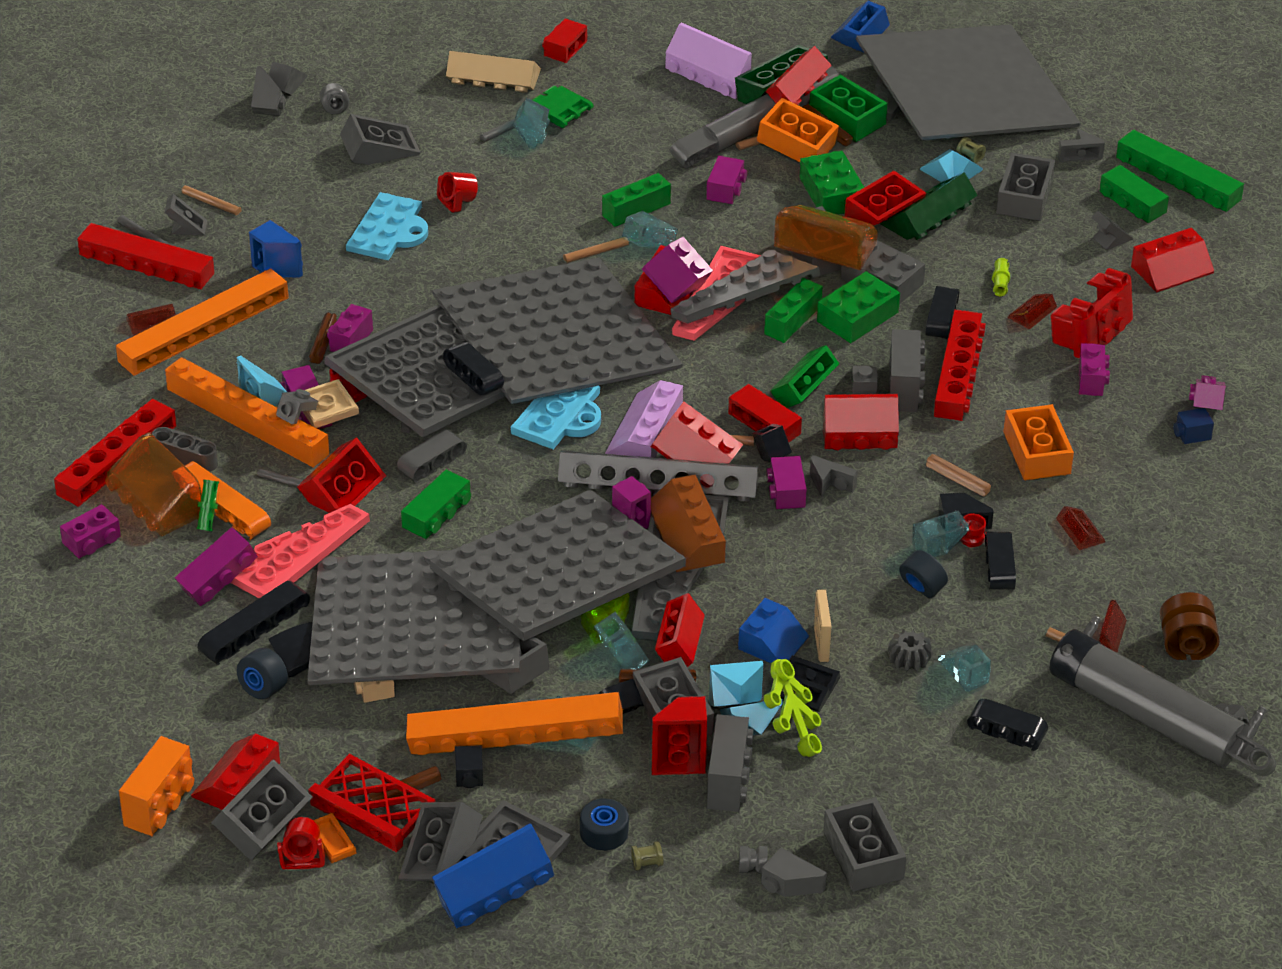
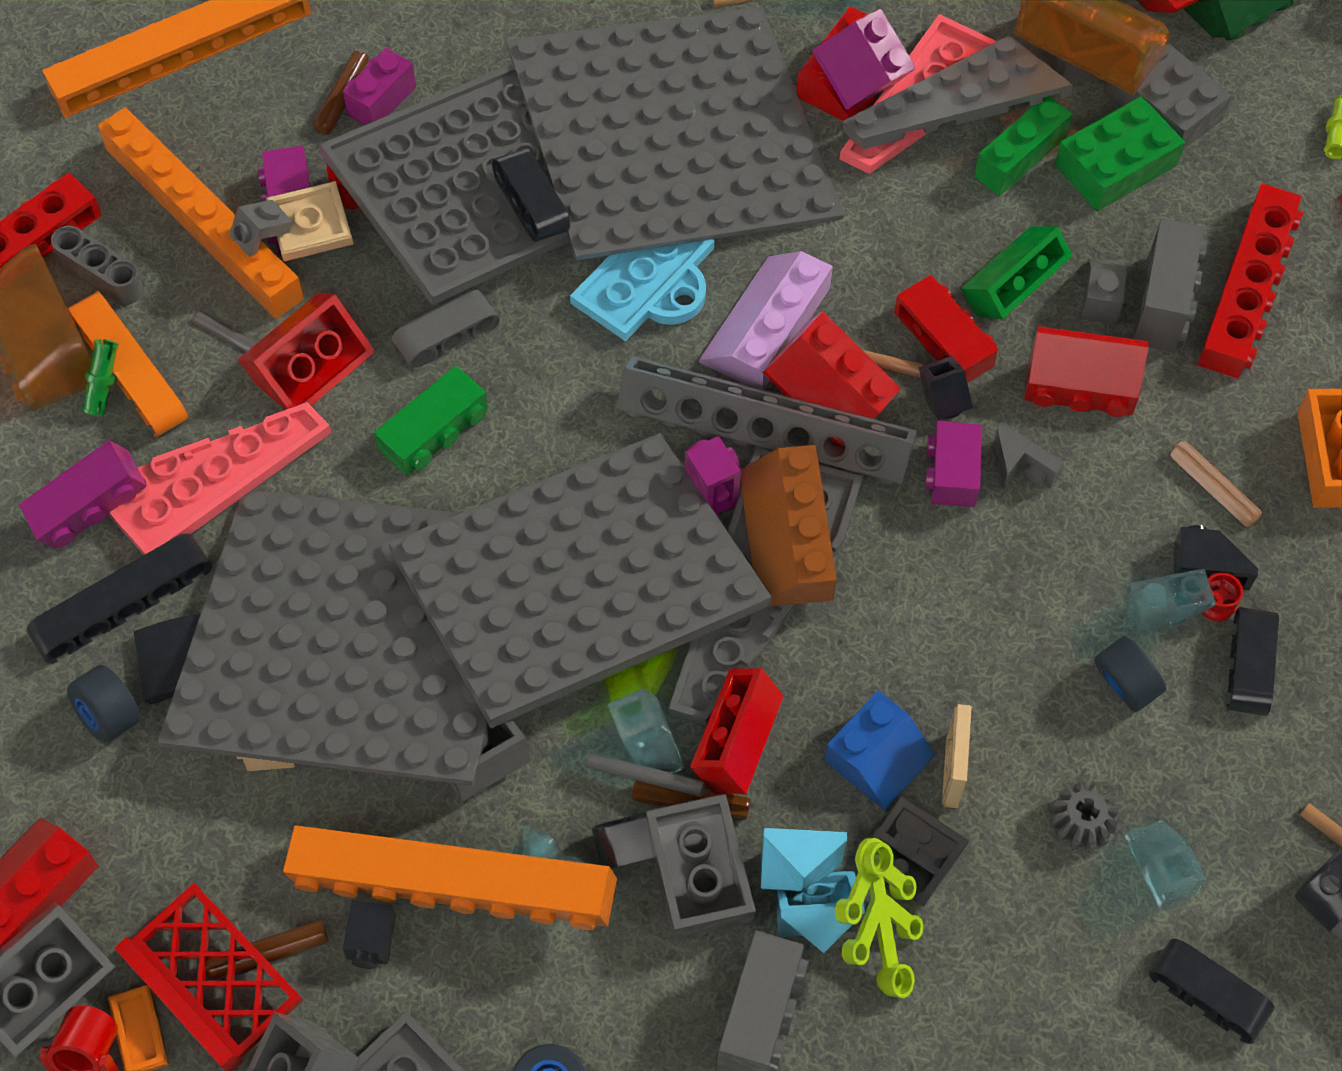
camera: 10 degrees right, 20 degrees up
(145, 319) = (107, 25): clear red slope -> none
(258, 382) = (227, 171): medium azure slope -> none
(612, 663) = (645, 774): none -> dark grey bar
(680, 737) = (693, 954): red slope -> none
(942, 312) = (1242, 178): black beam -> none

